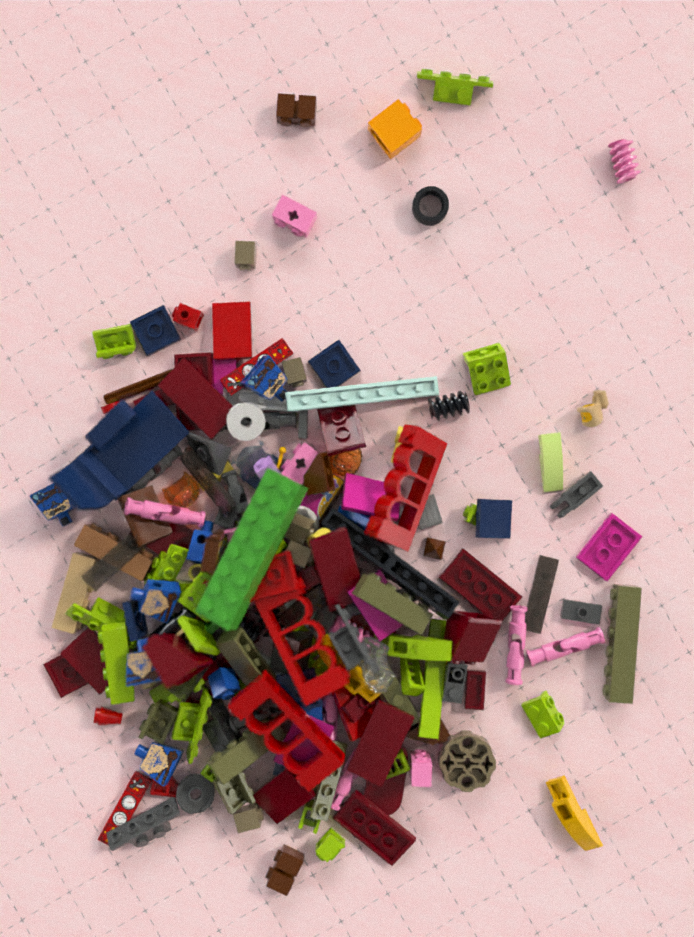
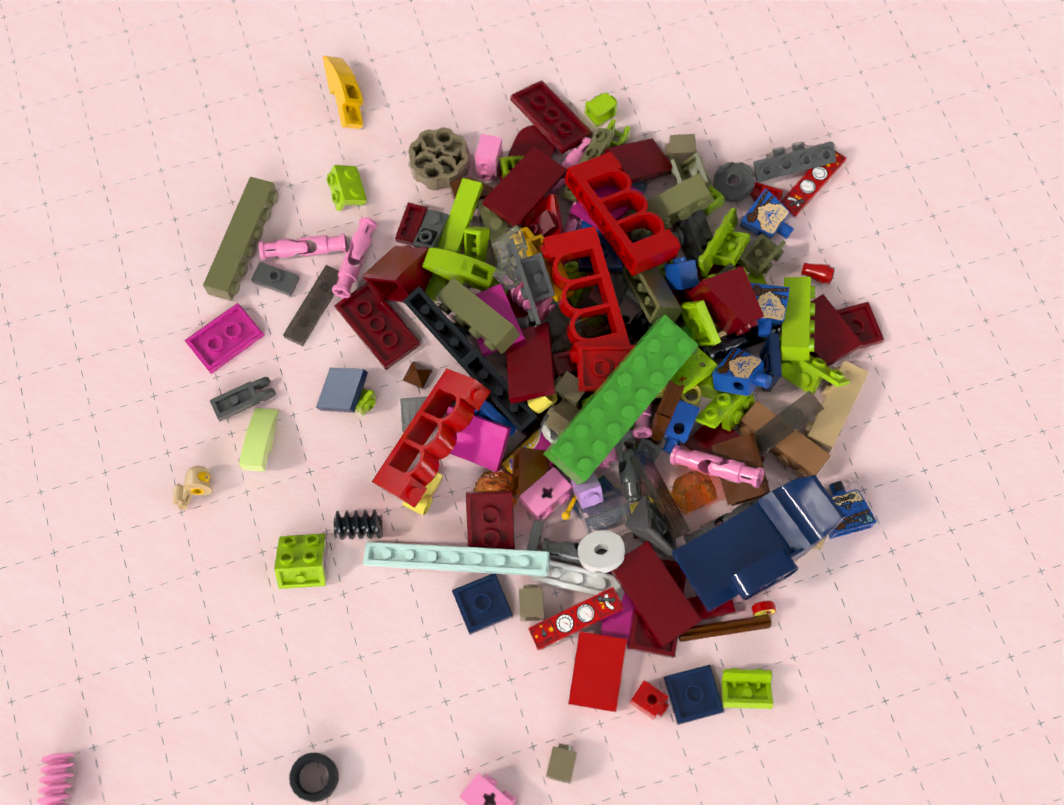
camera: 165 degrees left, 20 degrees down
(266, 379) = (567, 596): torso -> none
(287, 865) = (650, 99): reddish brown piece -> none

